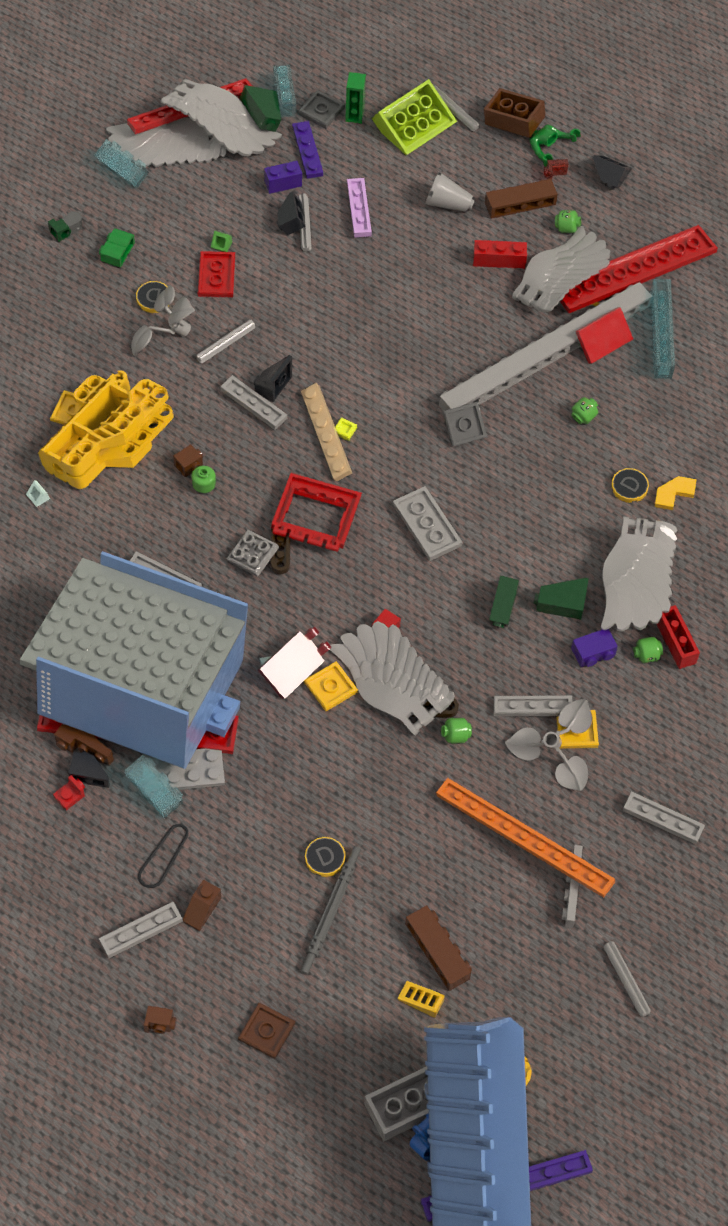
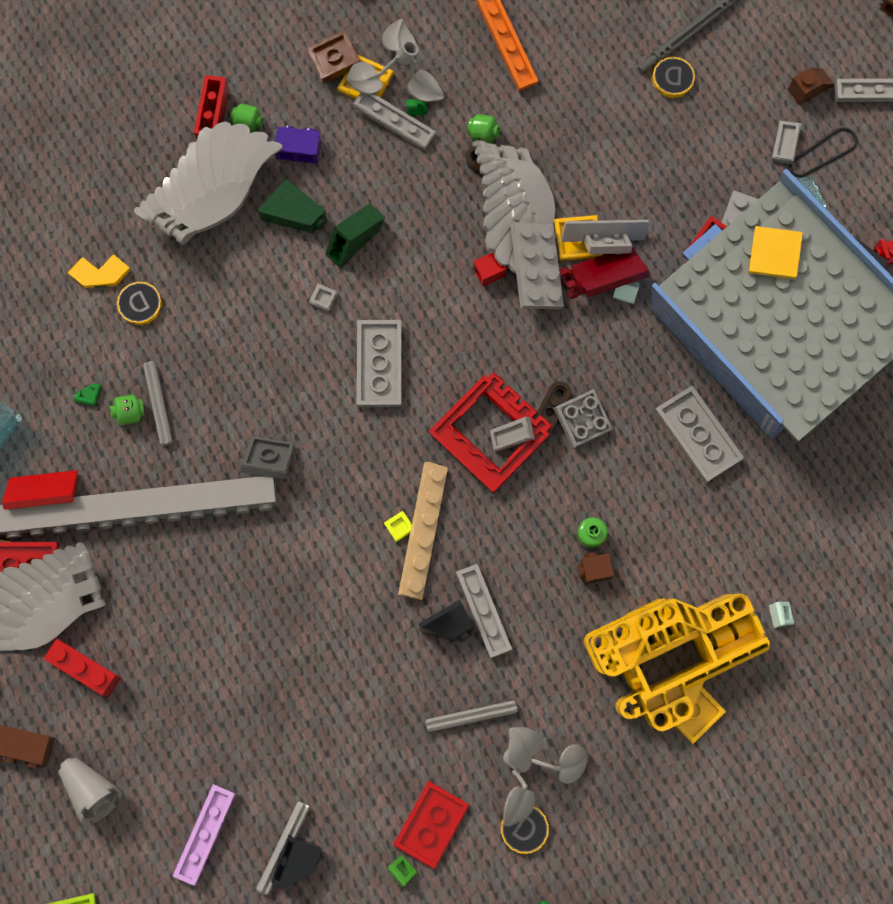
camera: 150 degrees left, 15 degrees up
(164, 663) = (775, 252): none -> yellow tile
(199, 846) = (786, 142): none -> light grey tile
(299, 515) = (512, 434): none -> light grey tile
(305, 685) = (606, 235): none -> light grey bracket
(349, 638) = (536, 266): none -> light grey plate
(499, 551) = (323, 297): none -> light grey tile
(525, 722) = (416, 107): none -> green tile
(567, 427) = (157, 403): none -> light grey axle
(613, 729) = (333, 56): none -> reddish brown plate
(619, 411) = (88, 395): none -> green tile

